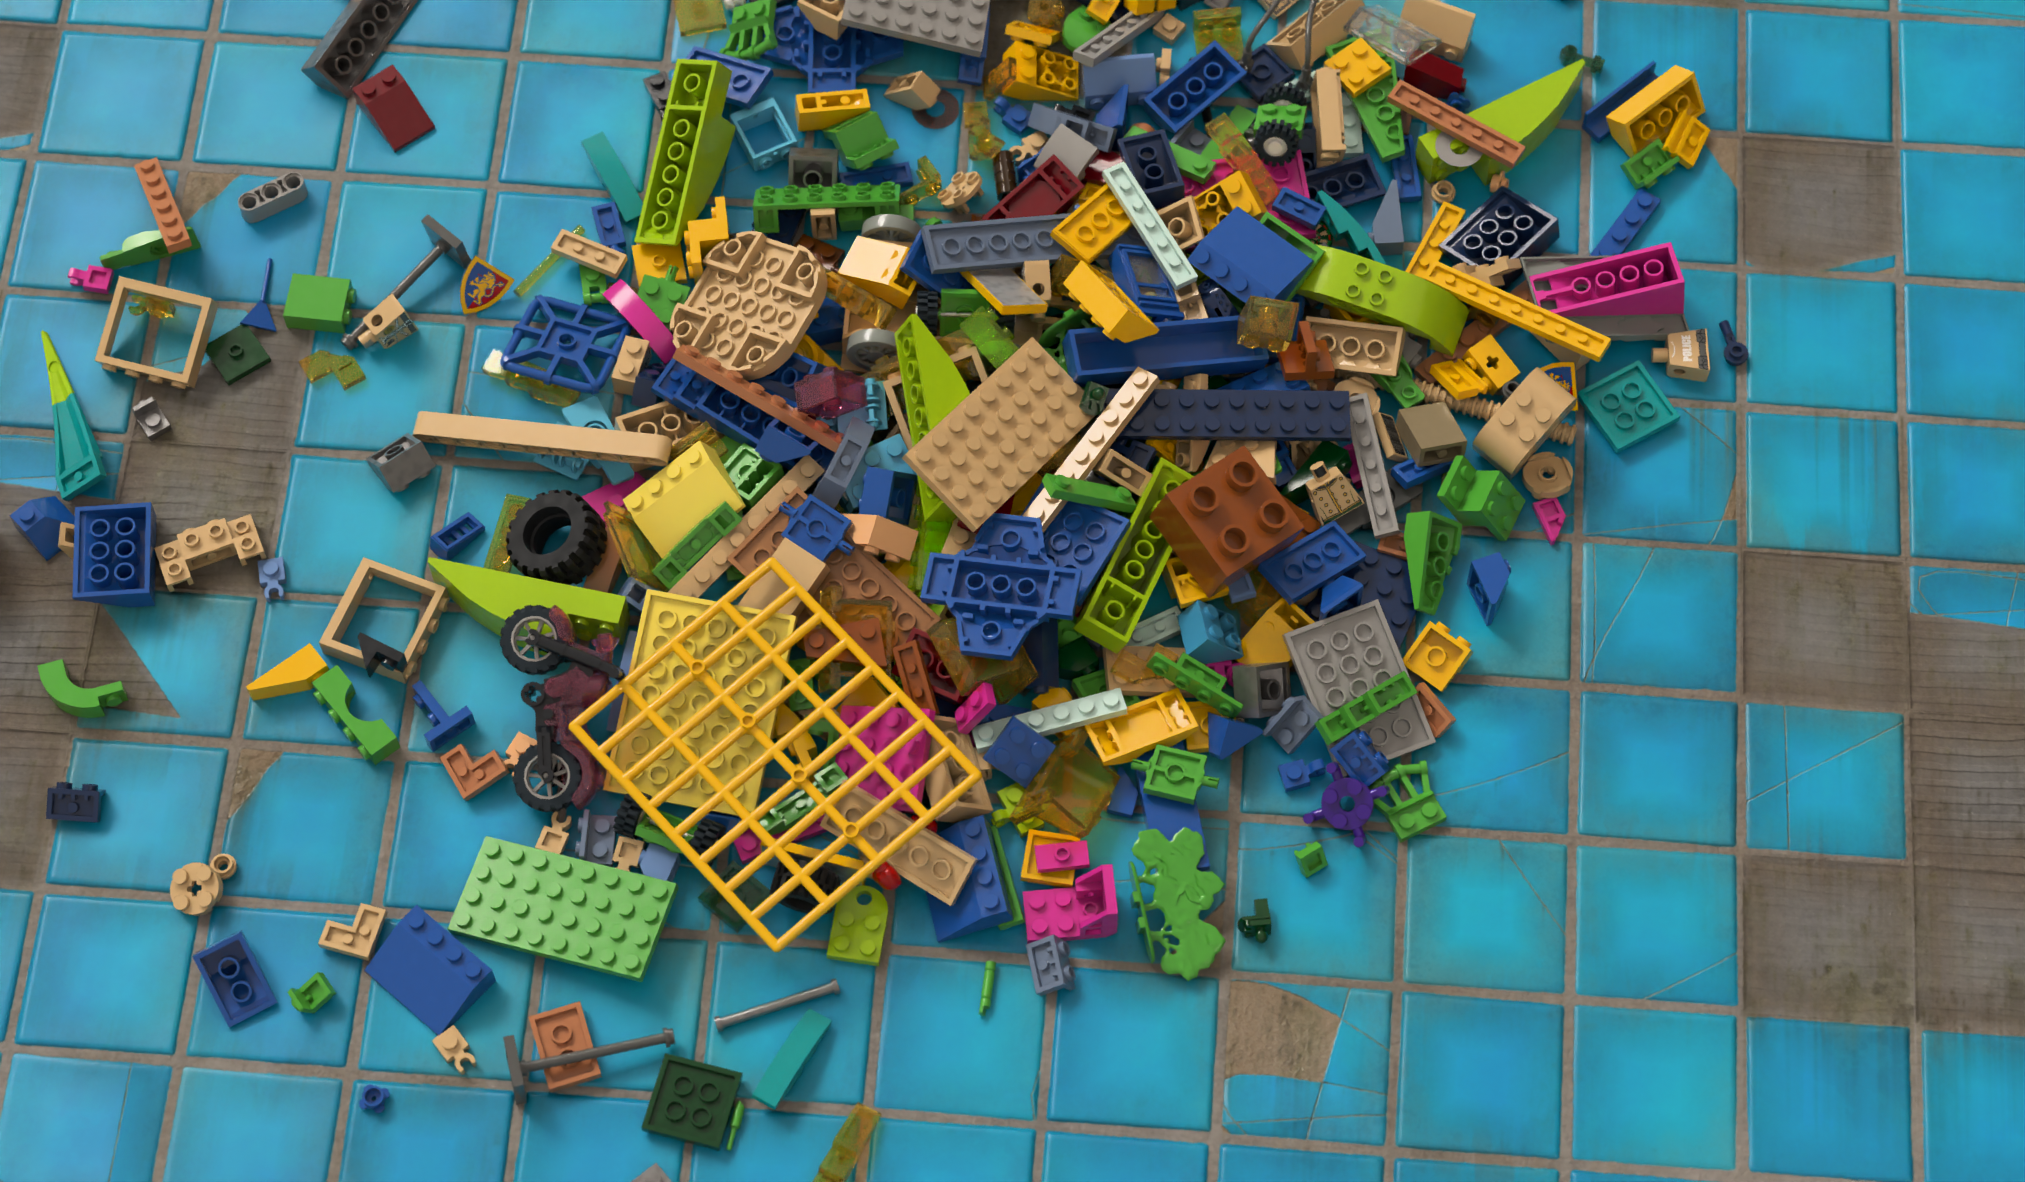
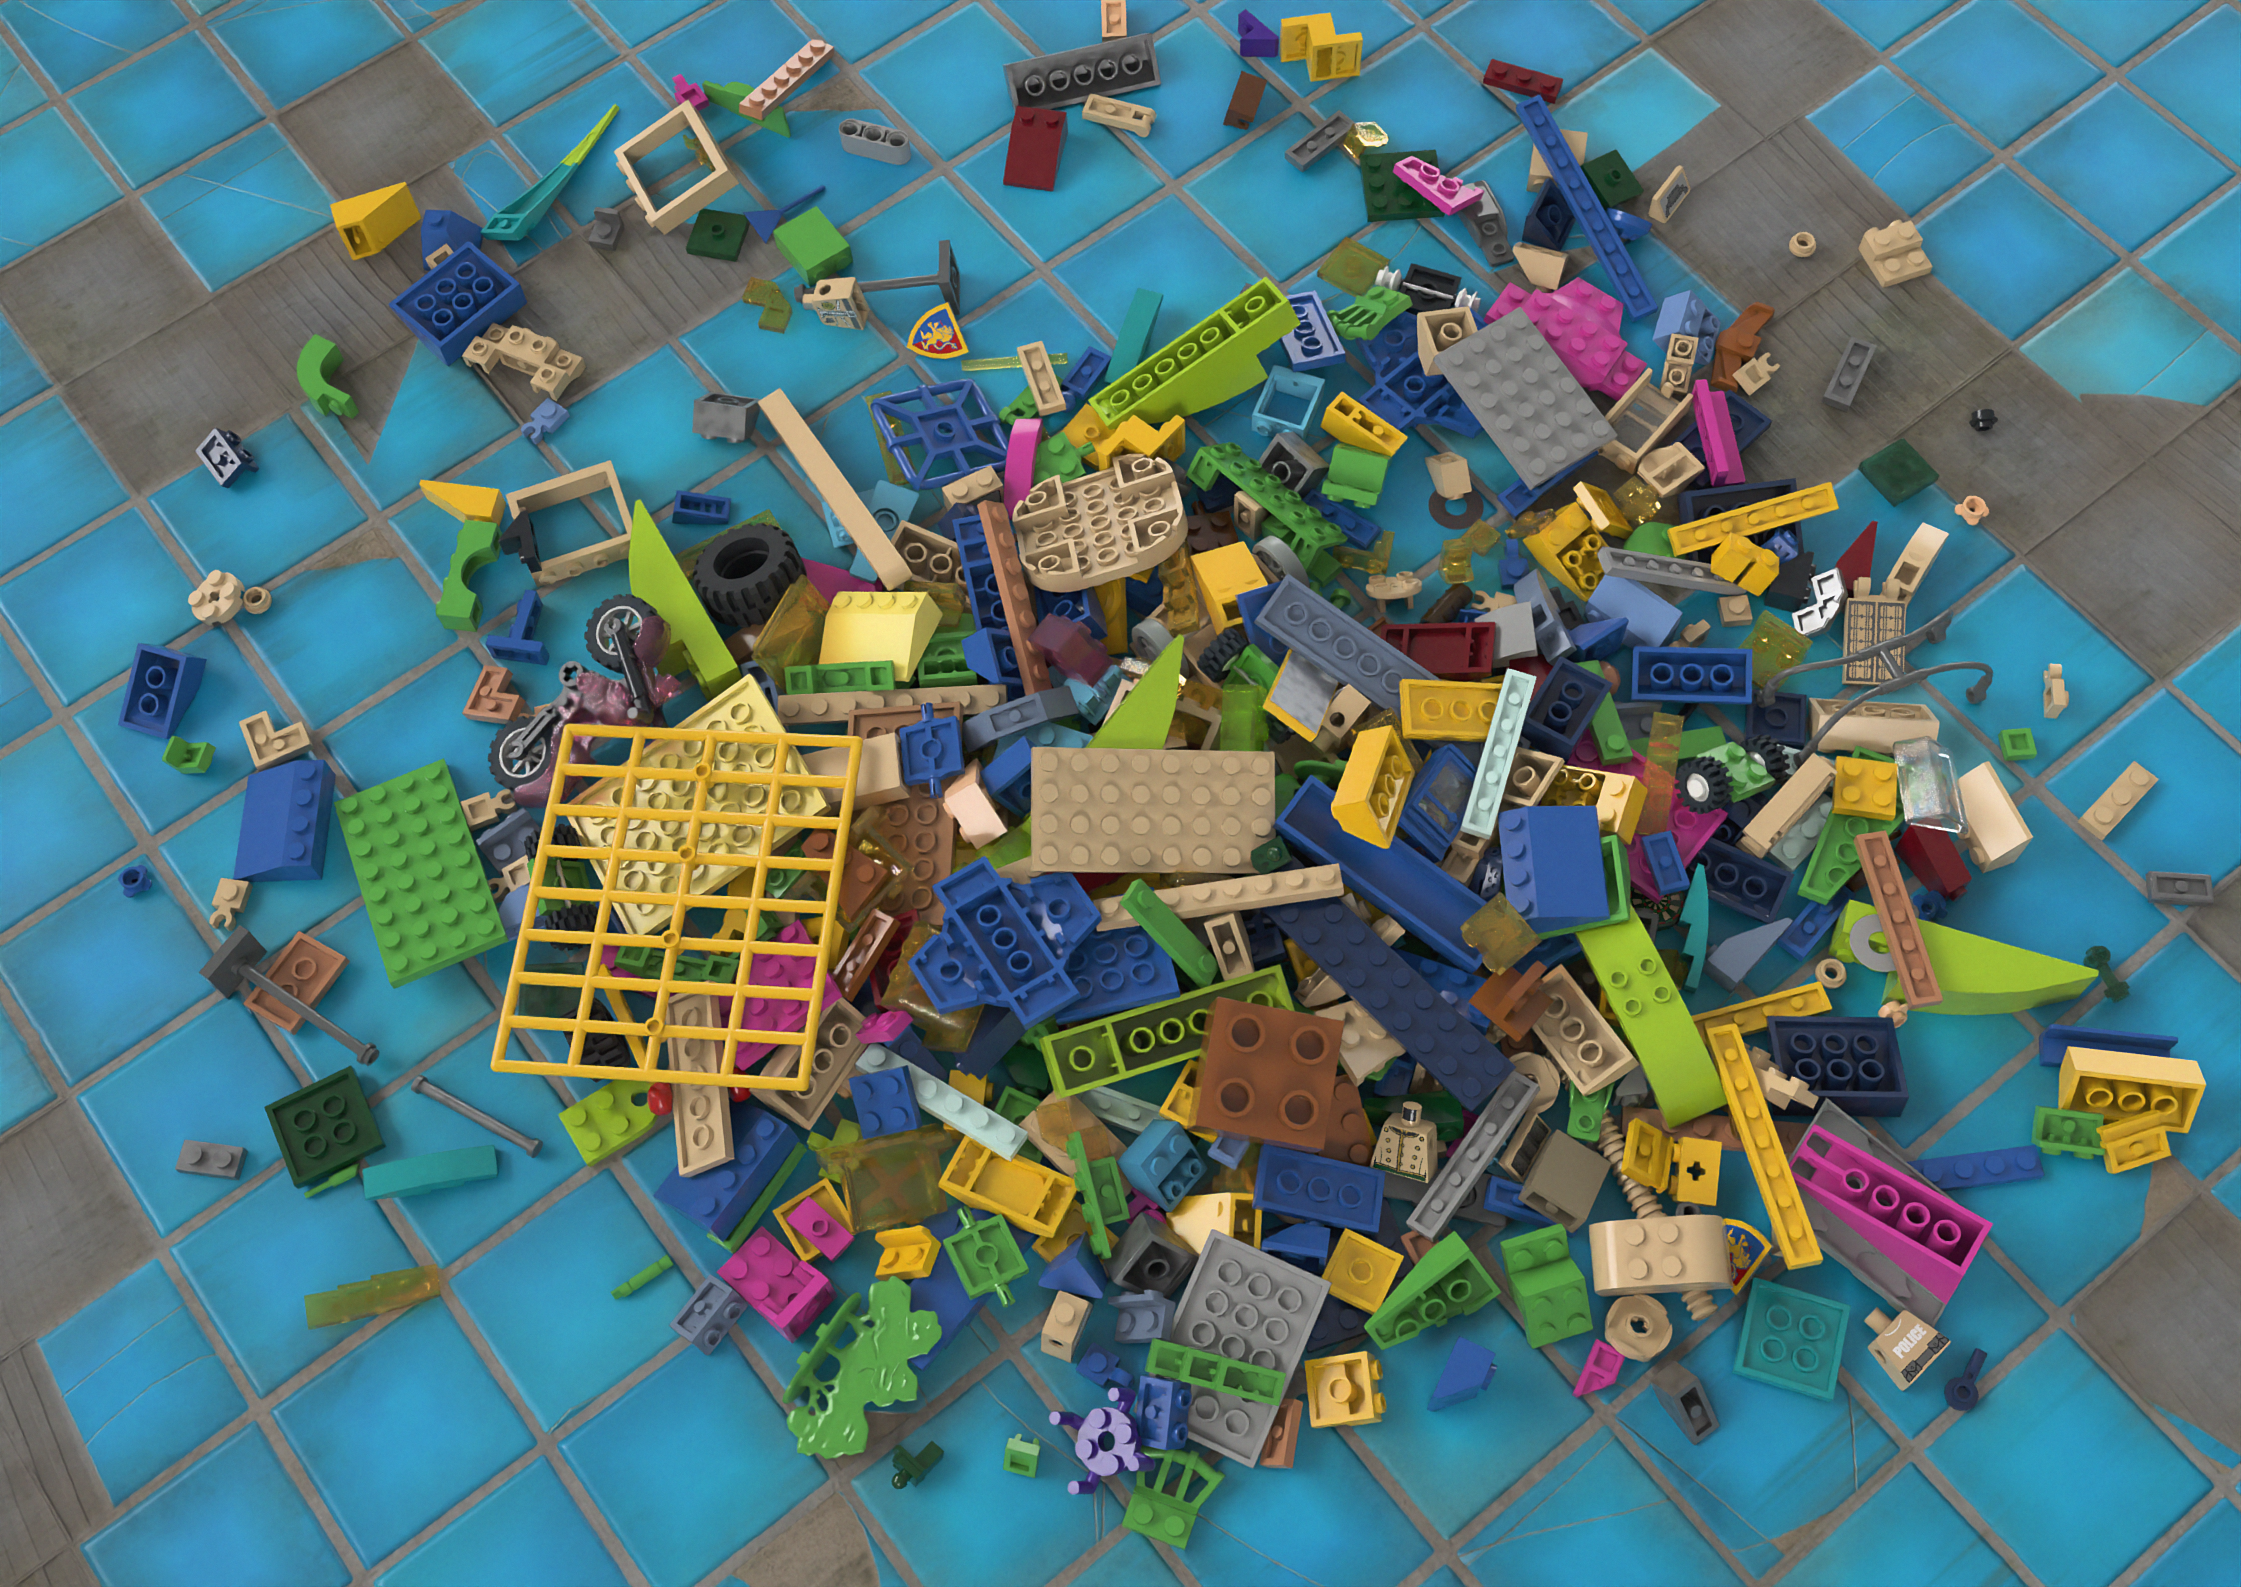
camera: 50 degrees right, 0 degrees up
(421, 37) = (1119, 114): none -> tan plate
(1126, 818) = (907, 1253): none -> yellow bracket
(1253, 766) = (1066, 1325): none -> tan torso
(1382, 581) = (1361, 1271): none -> yellow plate
(1610, 489) = (1685, 1401): none -> flat silver slope

